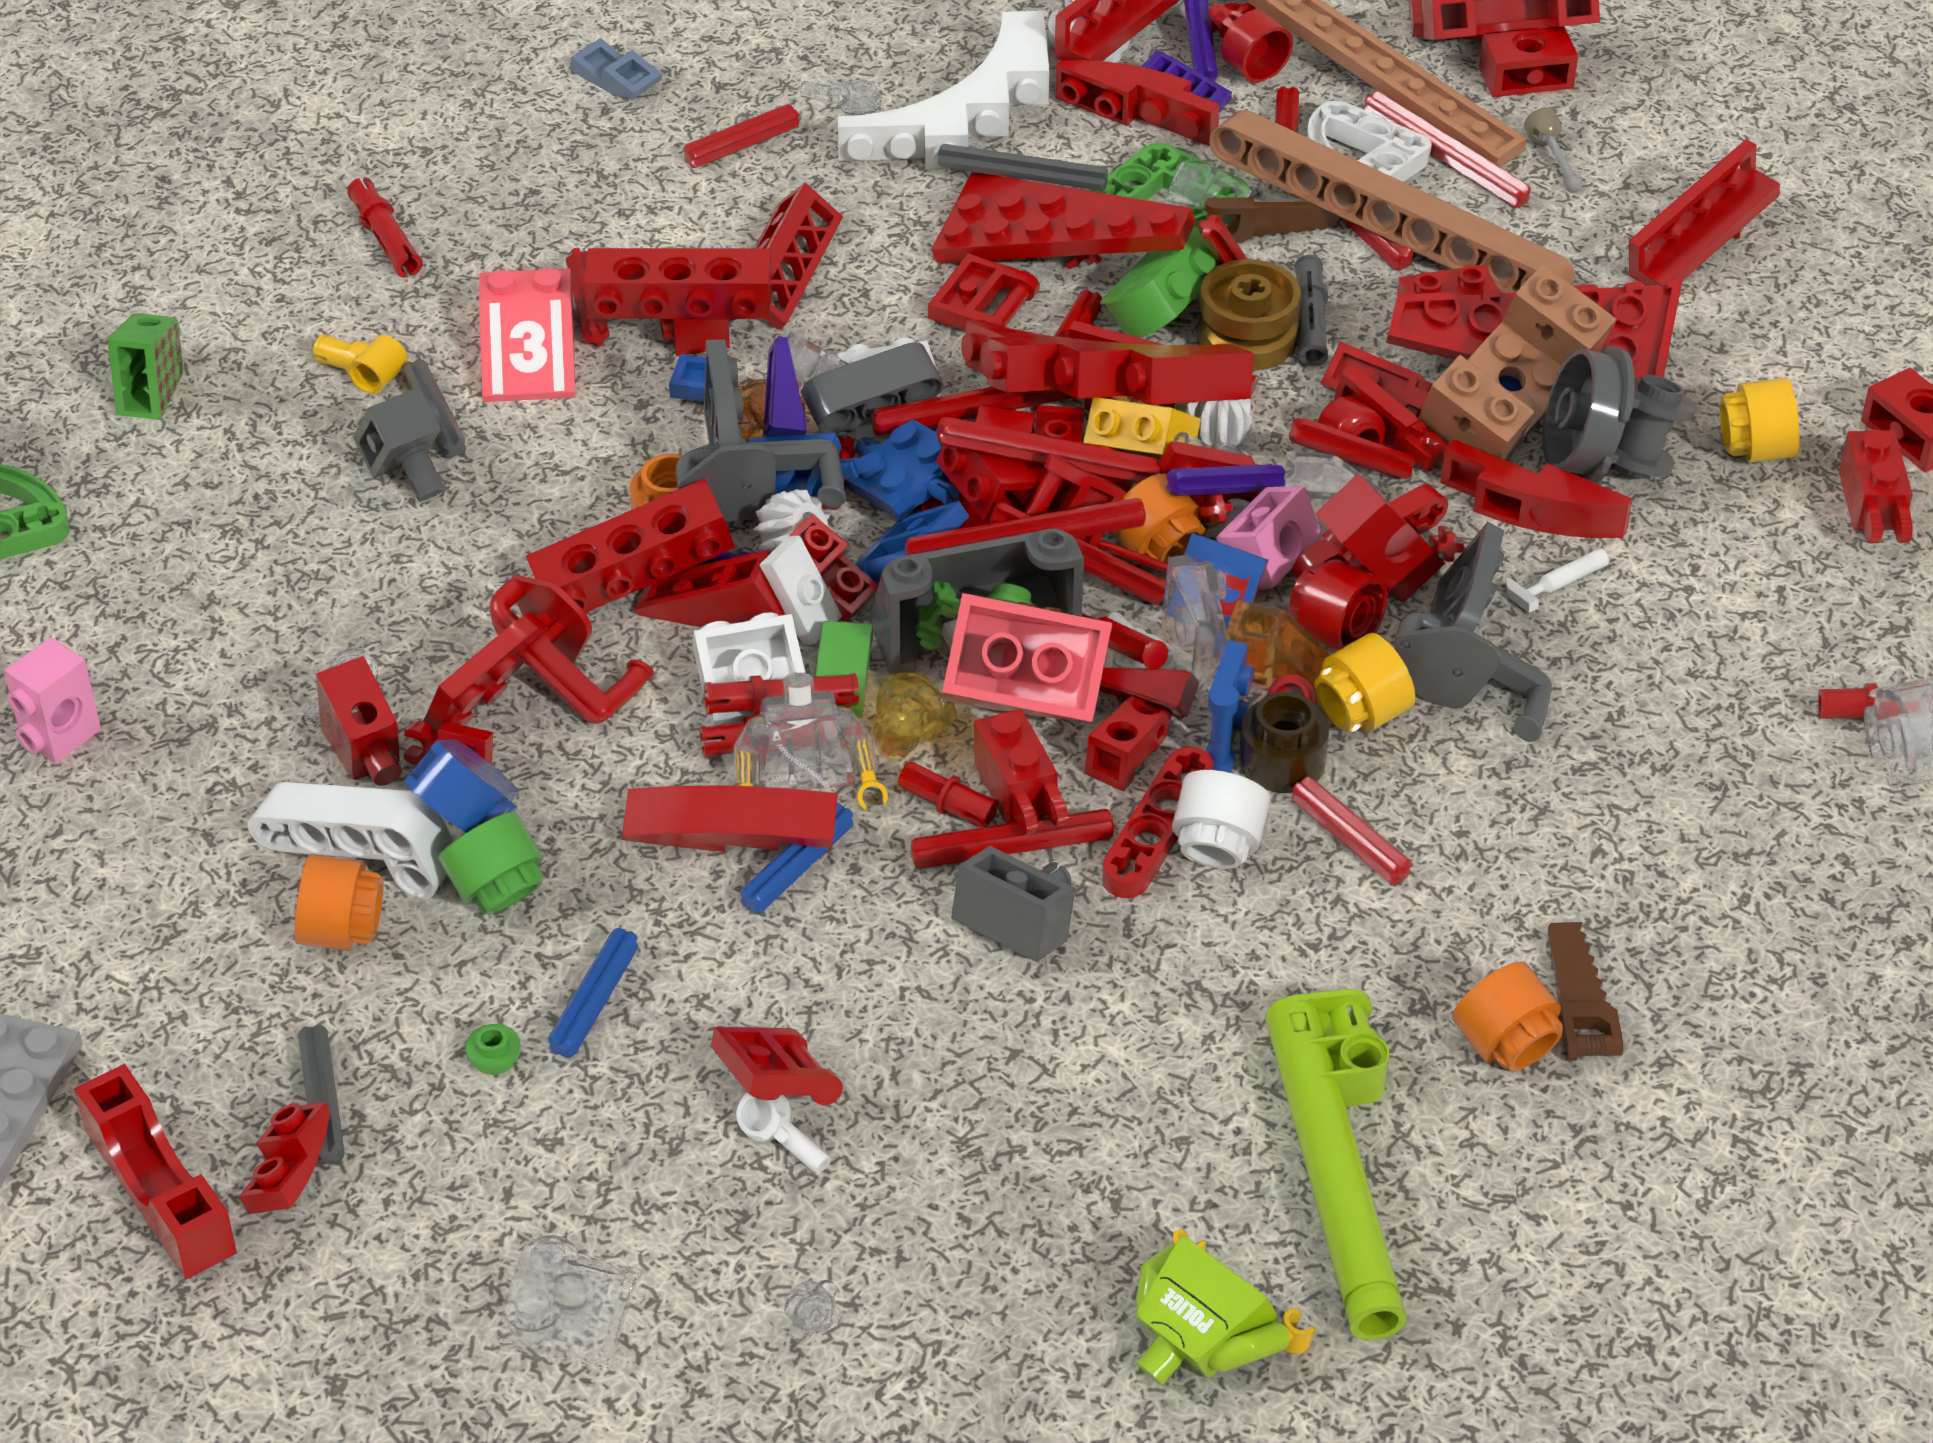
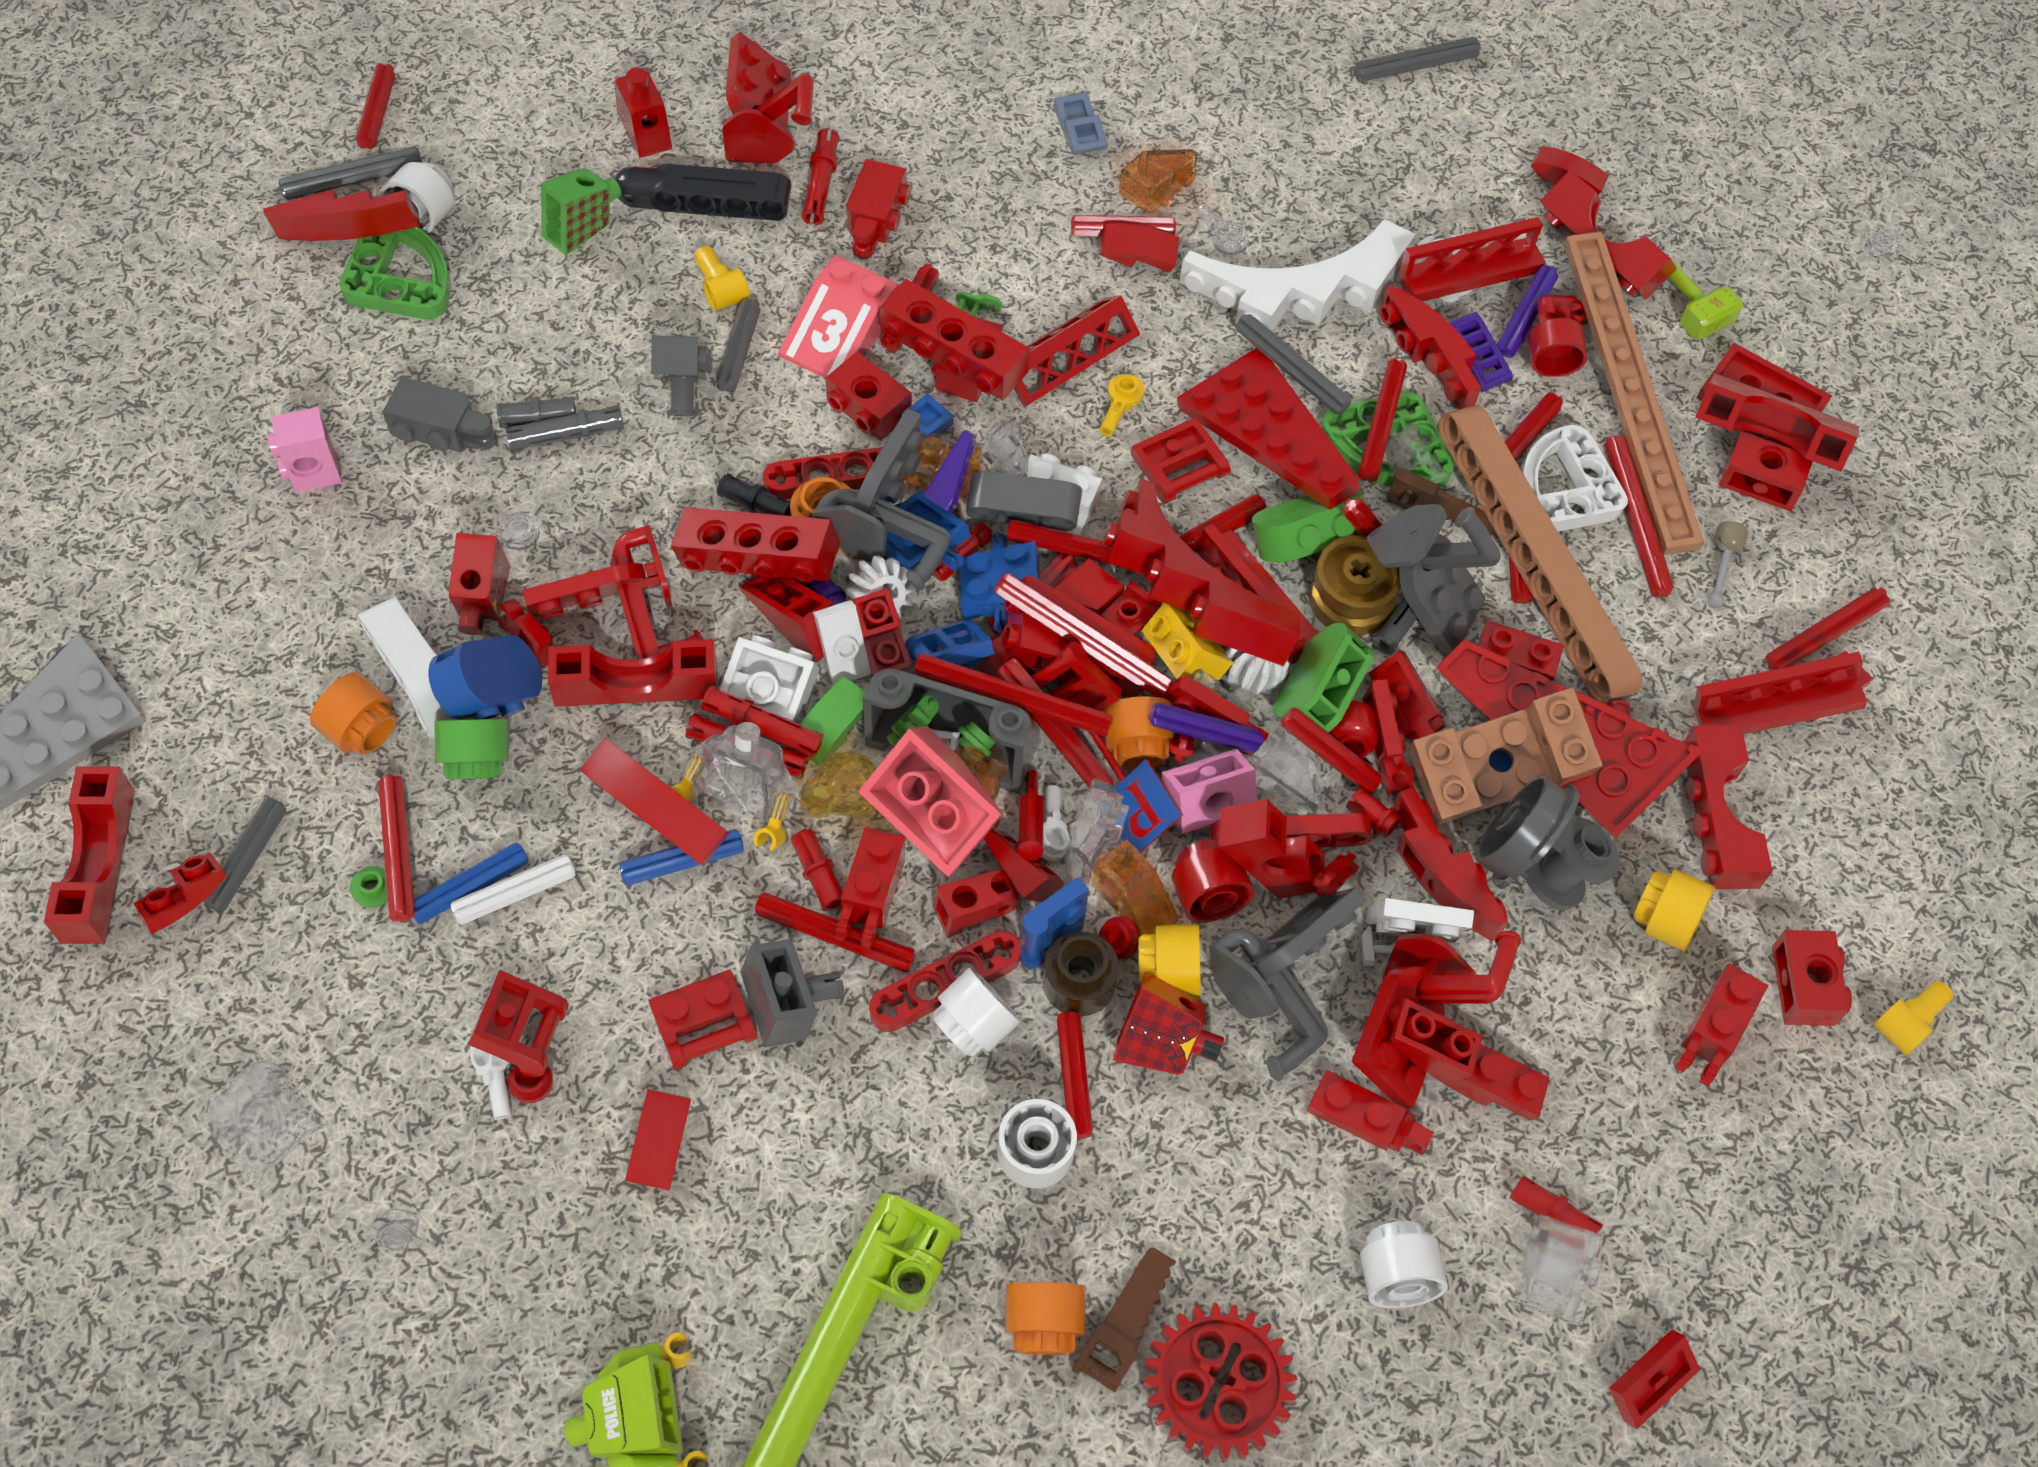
camera: 30 degrees right, 15 degrees up
(139, 247) = (639, 97): none -> red torso
(168, 613) = (437, 417): none -> dark grey hinge
(270, 561) = (532, 411): none -> dark grey pin
(274, 290) = (706, 191): none -> black piece
(285, 208) = (760, 99): none -> red plate
(331, 549) = (572, 426): none -> dark grey pin
(469, 222) = (876, 205): none -> red hinge
(490, 998) = (396, 849): none -> red axle
(561, 526) = (753, 497): none -> black pin
(602, 495) = (833, 464): none -> red beam
(619, 384) = (867, 395): none -> red brick
(646, 973) = (513, 889): none -> white axle
(655, 698) = (588, 677): none -> red arch
(740, 78) = (1156, 177): none -> clear orange slope
(769, 141) = (1133, 242): none -> red slope
(824, 1123) = (527, 1088): none -> red plate
(875, 271) = (1125, 393): none -> yellow plate
(938, 967) = (697, 1008): none -> red plate
(1007, 1089) = (658, 1139): none -> red slope
(1144, 161) = (1382, 420): none -> red axle
(1288, 384) = (1326, 676): none -> bright green brick
(1294, 234) = (1436, 570): none -> dark grey plate
(1376, 888) = (1042, 1120): none -> white piece
(1406, 738) = (1164, 1029): none -> torso
(1443, 483) = (1381, 818): none -> red pin
(1559, 525) = (1401, 916): none -> white plate
(1599, 568) = (1431, 975): none -> red plate
(1643, 721) = (1367, 1115): none -> red hinge
(1673, 995) = (1257, 1401): none -> red gear
(1691, 155) = (1828, 629): none -> red axle
(1698, 630) = (1464, 1064): none -> red slope
(1741, 349) = (1731, 851): none -> red arch
(1786, 805) = (1402, 1266): none -> white piece

